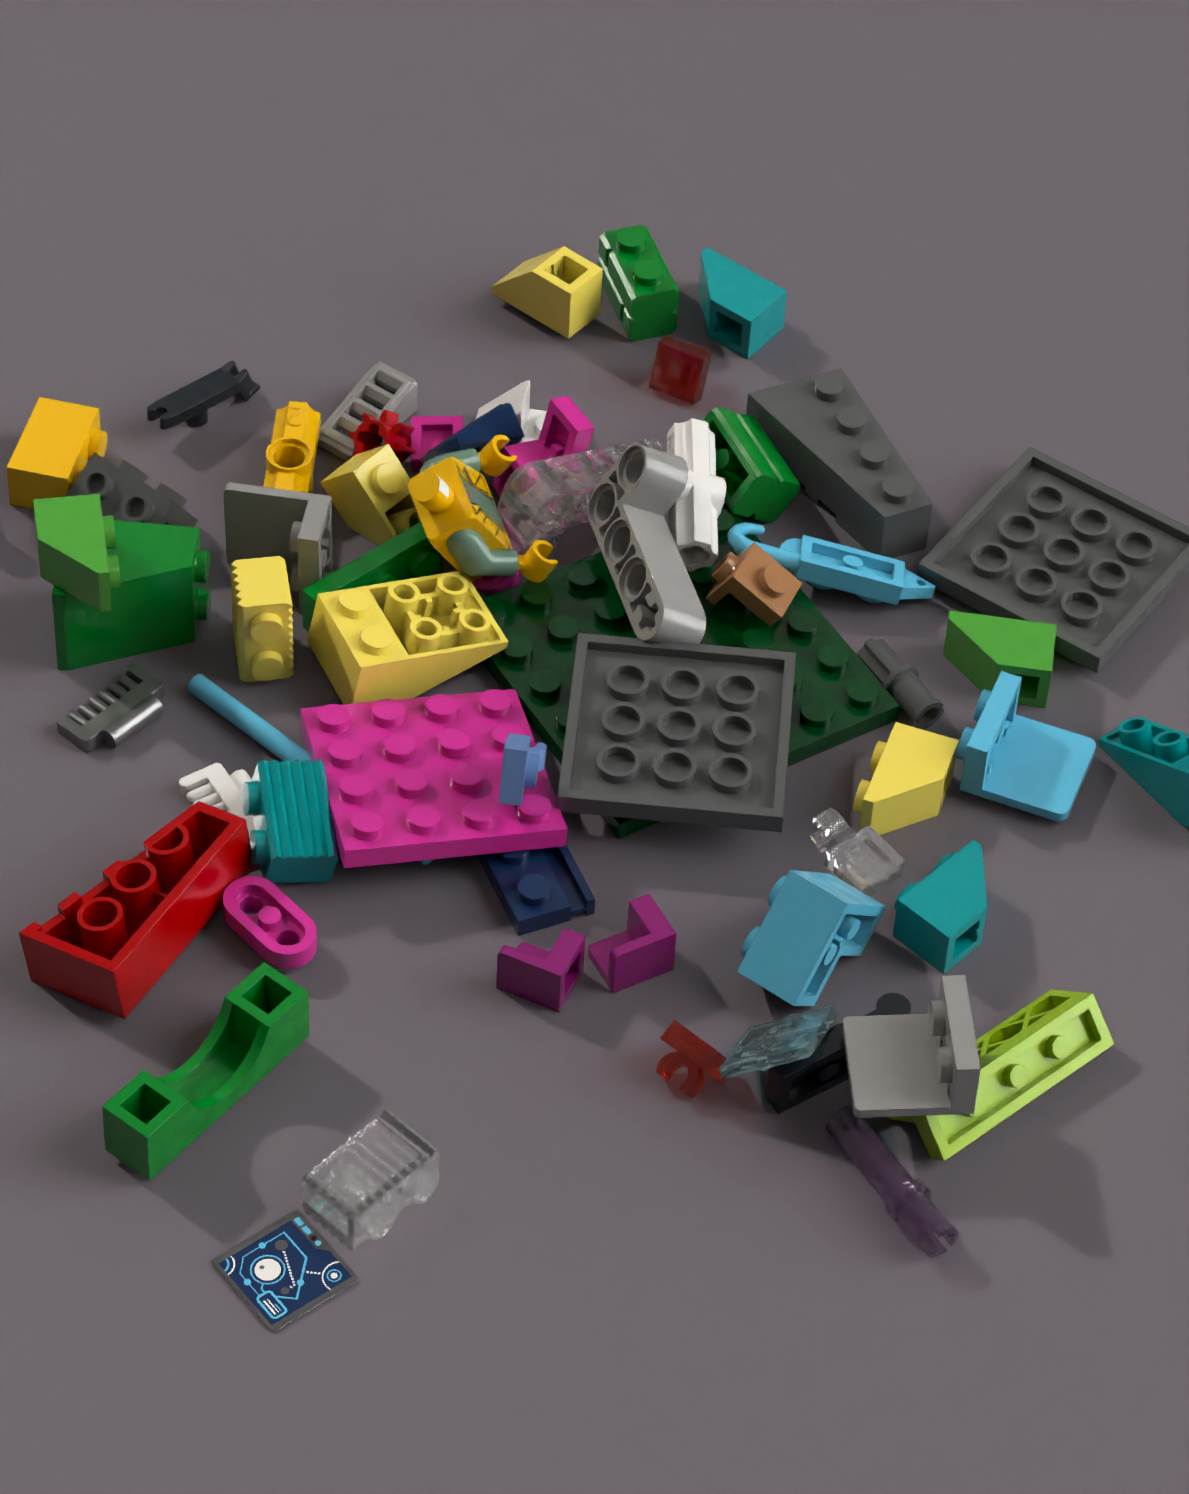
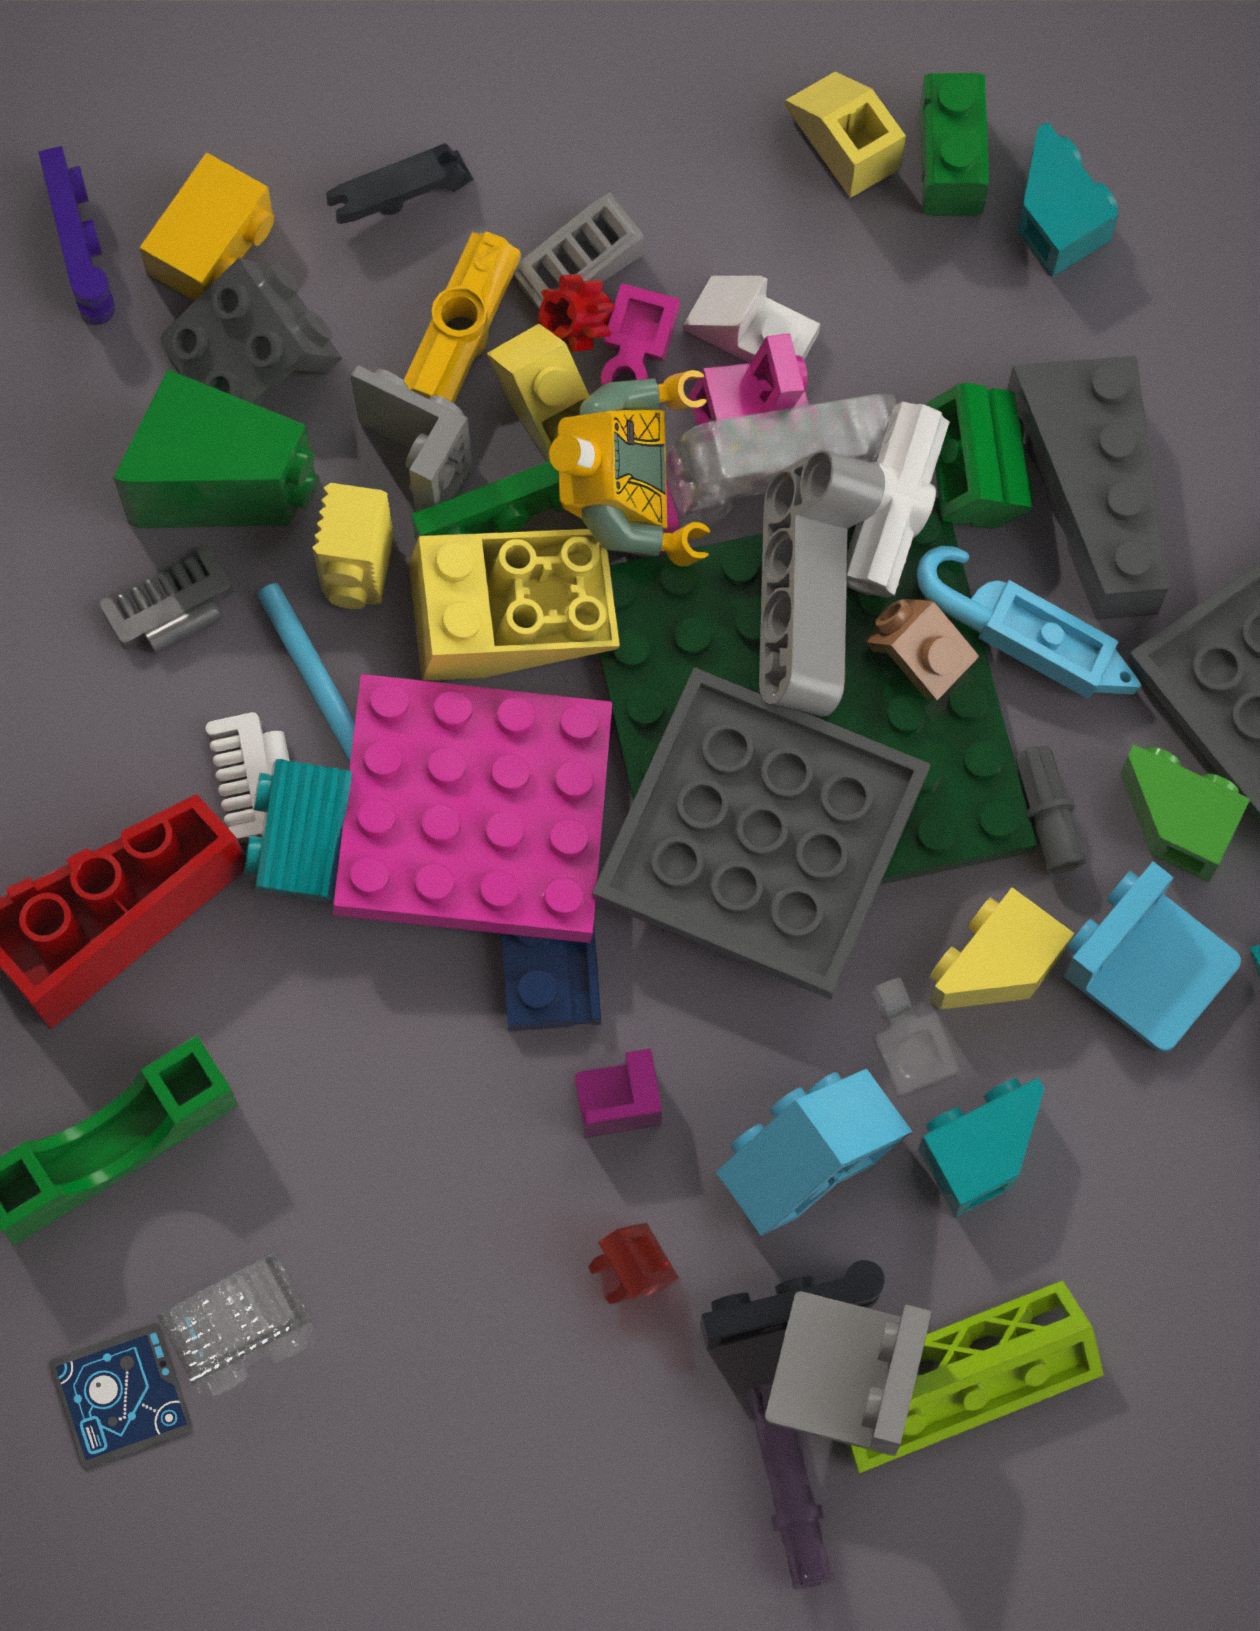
camera: 20 degrees right, 25 degrees up
(73, 548) = (147, 433): bright green slope -> none
(279, 929) = (241, 951): dark pink plate -> none
(479, 432) = (684, 342): dark blue slope -> none
(520, 767) = (554, 855): medium blue plate -> none
(540, 974) = (512, 1094): magenta panel -> none
(680, 369) = (960, 286): clear red tile -> none
(778, 1042) = (724, 1286): clear light blue piece -> none

